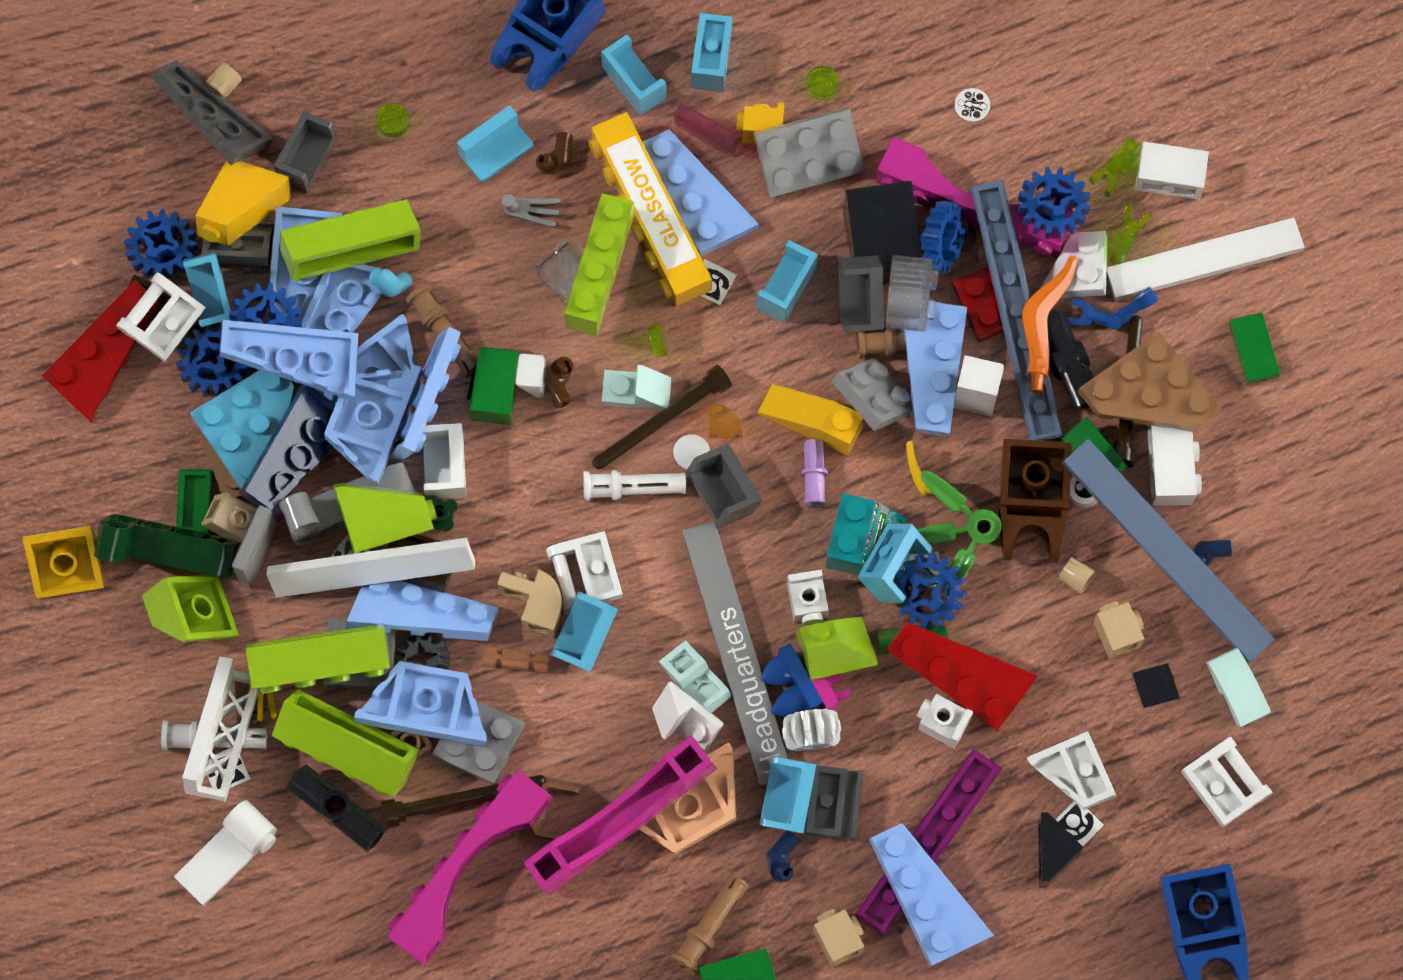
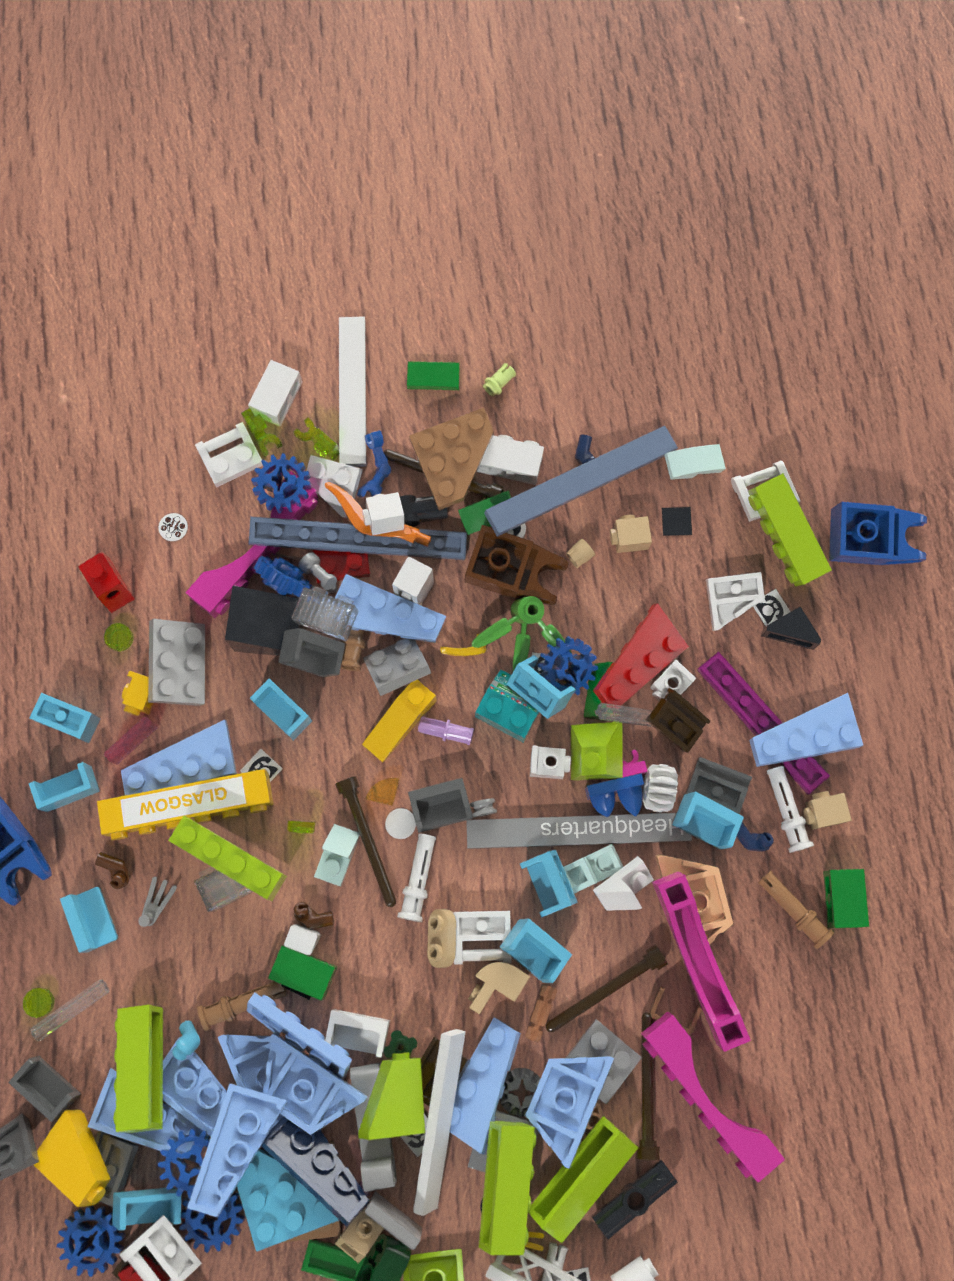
camera: 75 degrees left, 5 degrees up
(393, 154) = (69, 1010): none -> clear axle
(570, 527) = (441, 938): none -> tan plate
(608, 771) = (652, 960): none -> dark brown piece
(668, 633) = (550, 882): none -> medium azure panel
(734, 536) = (483, 807): none -> light grey bush
(814, 900) = (777, 775): none -> white pin
(885, 44) = (105, 578): none -> red torso
(887, 669) = (623, 714): none -> clear axle
(899, 733) = (678, 720): none -> dark brown plate
(968, 266) = (311, 564): none -> light grey piece
(1051, 327) = (384, 513): none -> white brick
(1072, 148) = (232, 462): none -> white plate
(1178, 814) = (789, 530): none -> lime brick
(1272, 426) = (499, 380): none -> yellowish green pin

